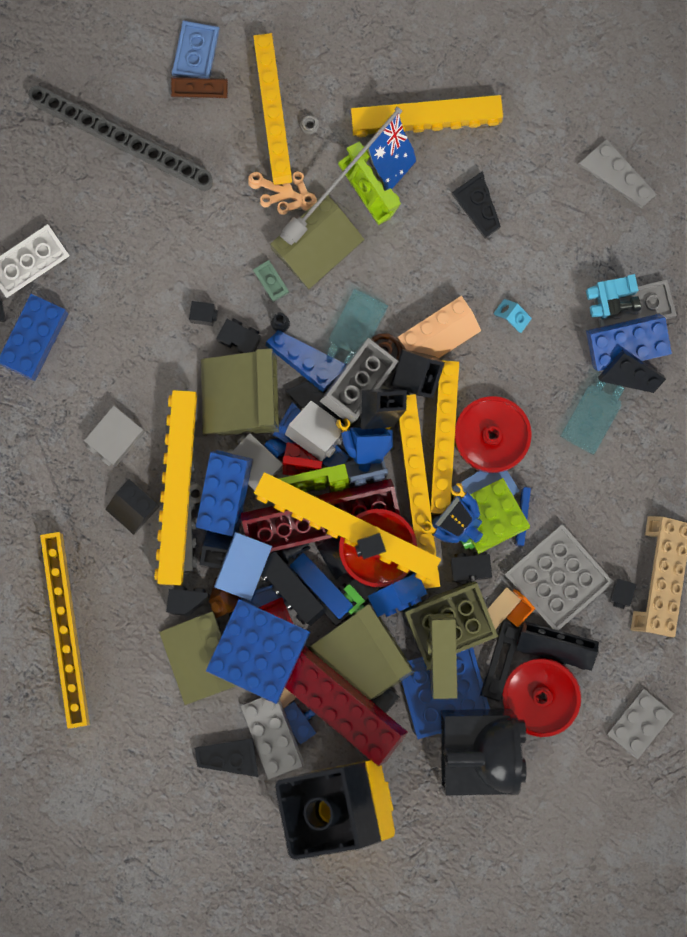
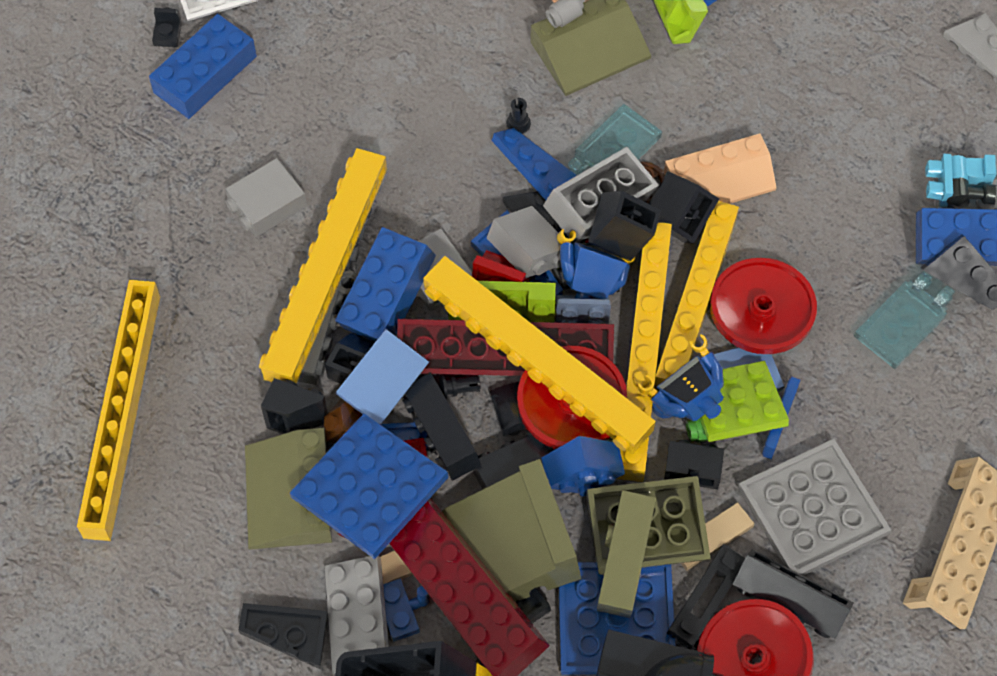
camera: 15 degrees right, 20 degrees down
(131, 506) = (260, 282): black slope -> none
(203, 313) = (423, 87): black brick -> none
(236, 335) = (462, 123): black brick -> none
(240, 393) = (445, 181): olive panel -> none
(271, 281) = (520, 72): sand green plate -> none
(276, 447) = (467, 254): blue tile -> none
(321, 586) = (483, 433): blue slope -> none
(352, 595) = (519, 450): bright green bracket -> none
(370, 546) = (562, 376): black brick -> none
(477, 204) = (805, 48): black wing -> none
(514, 315) = (825, 177): medium azure bracket -> none
(521, 611) = (753, 538): orange bracket -> none
(622, 593) = (900, 549): black brick -> none

